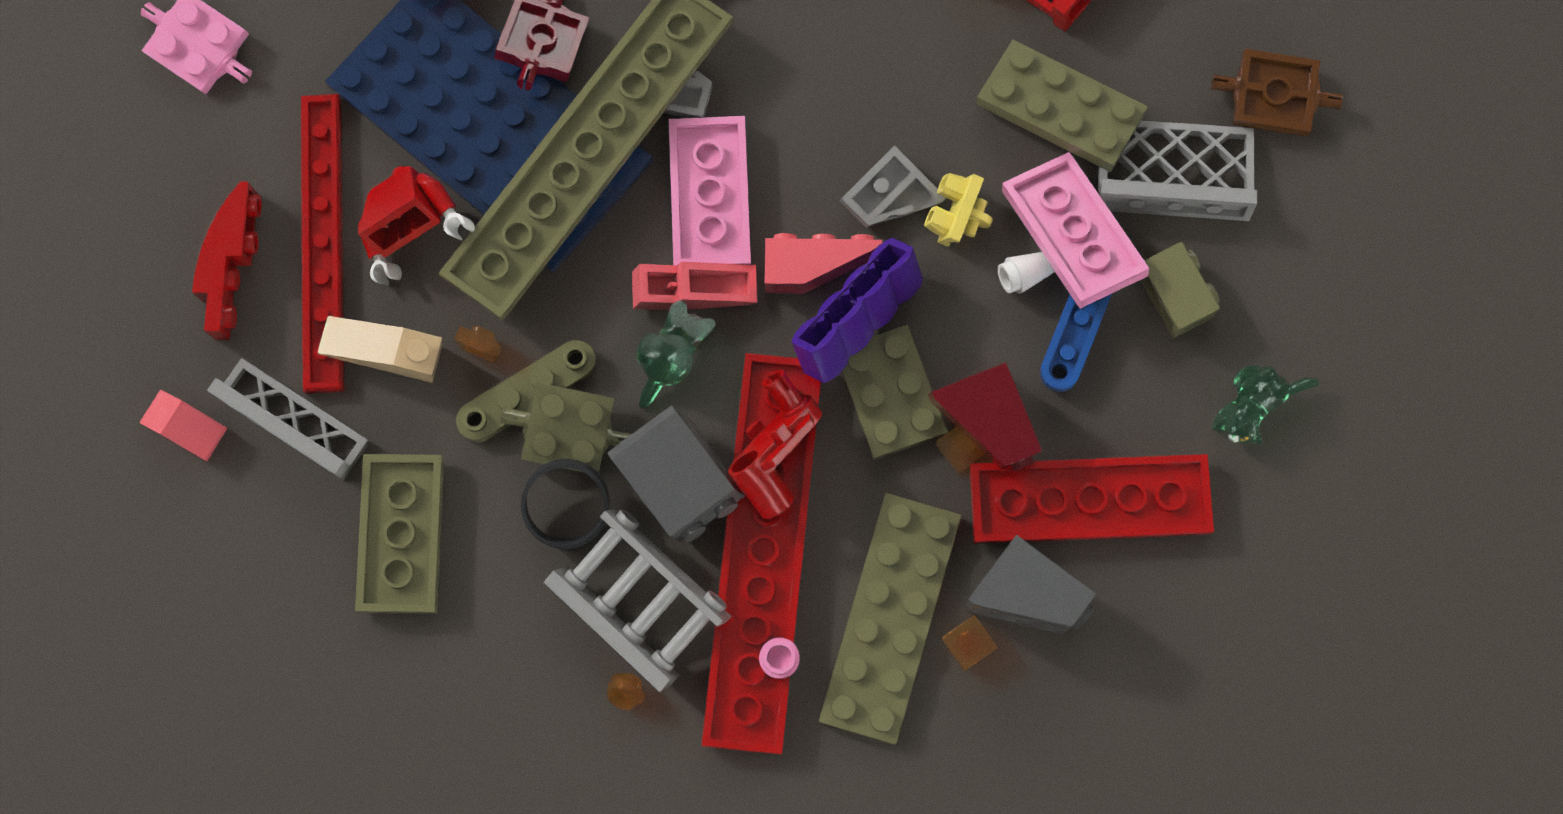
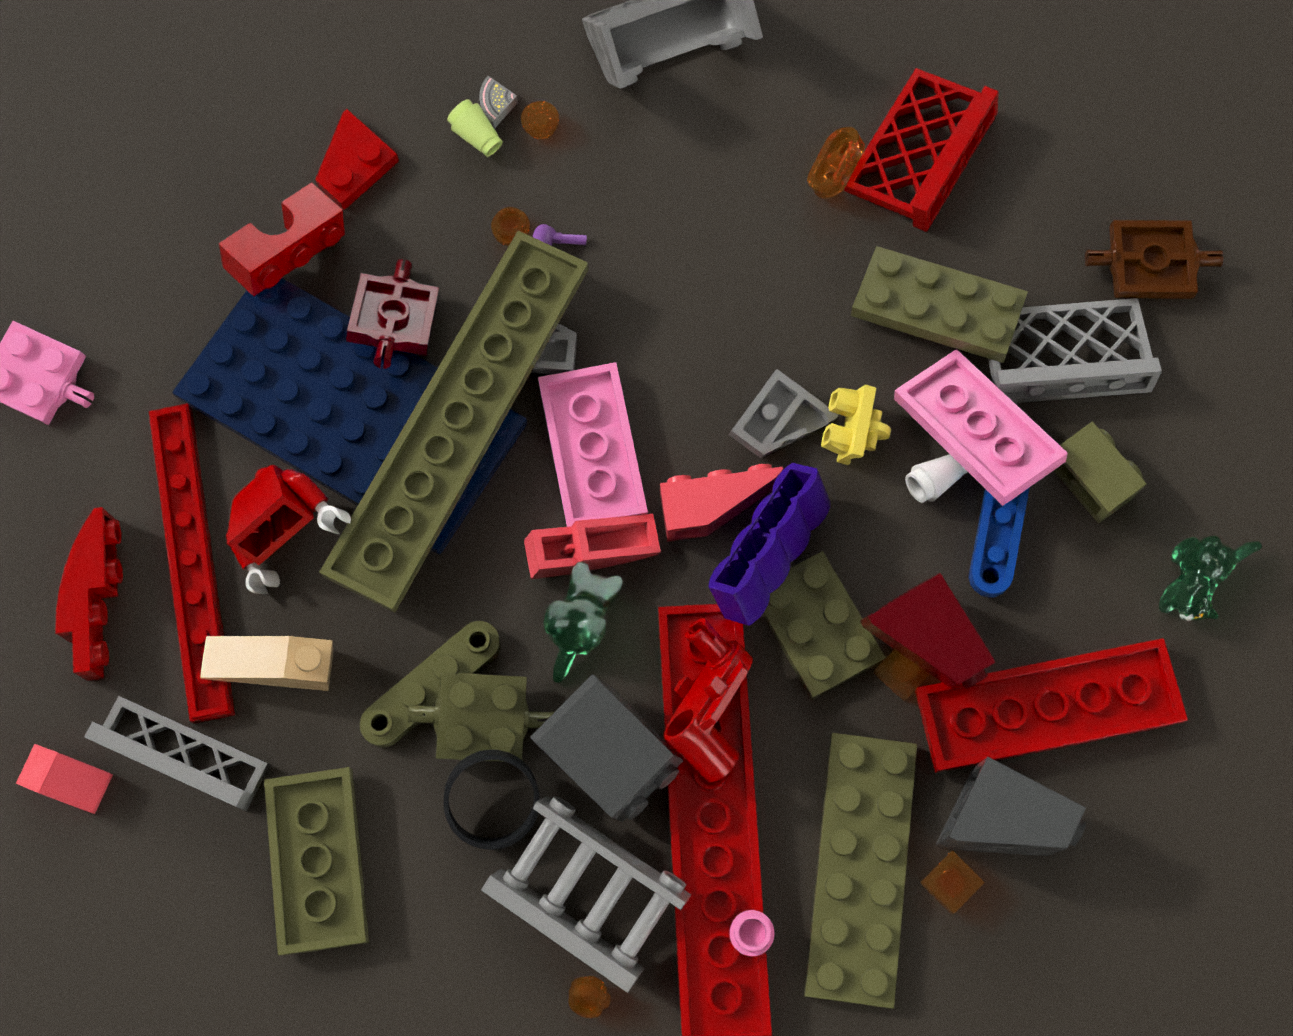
camera: 10 degrees left, 5 degrees down
(478, 342) = (371, 639): clear orange plate -> none

